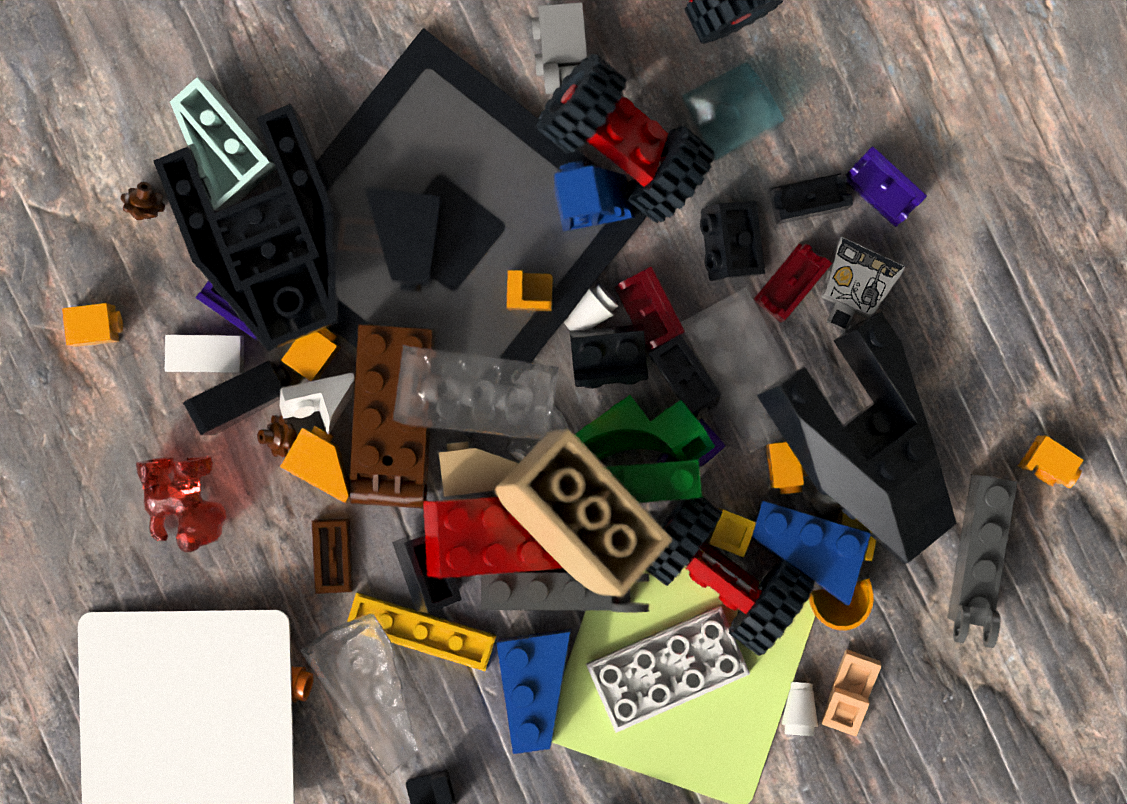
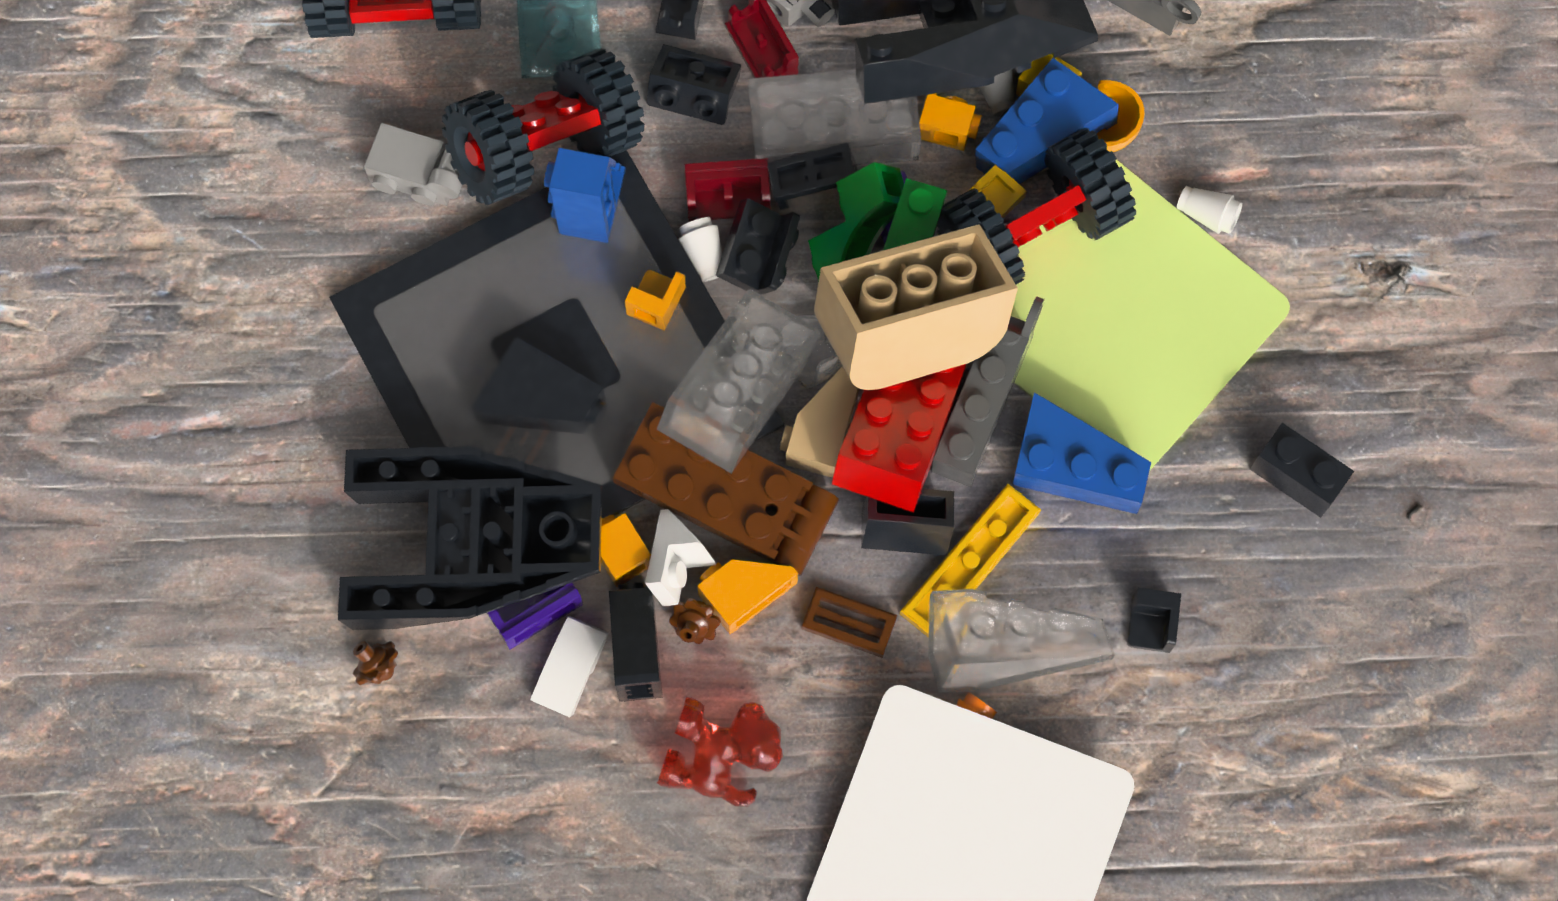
camera: 70 degrees left, 15 degrees down
(92, 324) = (483, 772): light orange brick -> none
(223, 145) = (351, 543): light aqua wedge -> none
(667, 669) = (1113, 324): white tile -> none
(850, 692) = (1209, 155): light nougat slope -> none

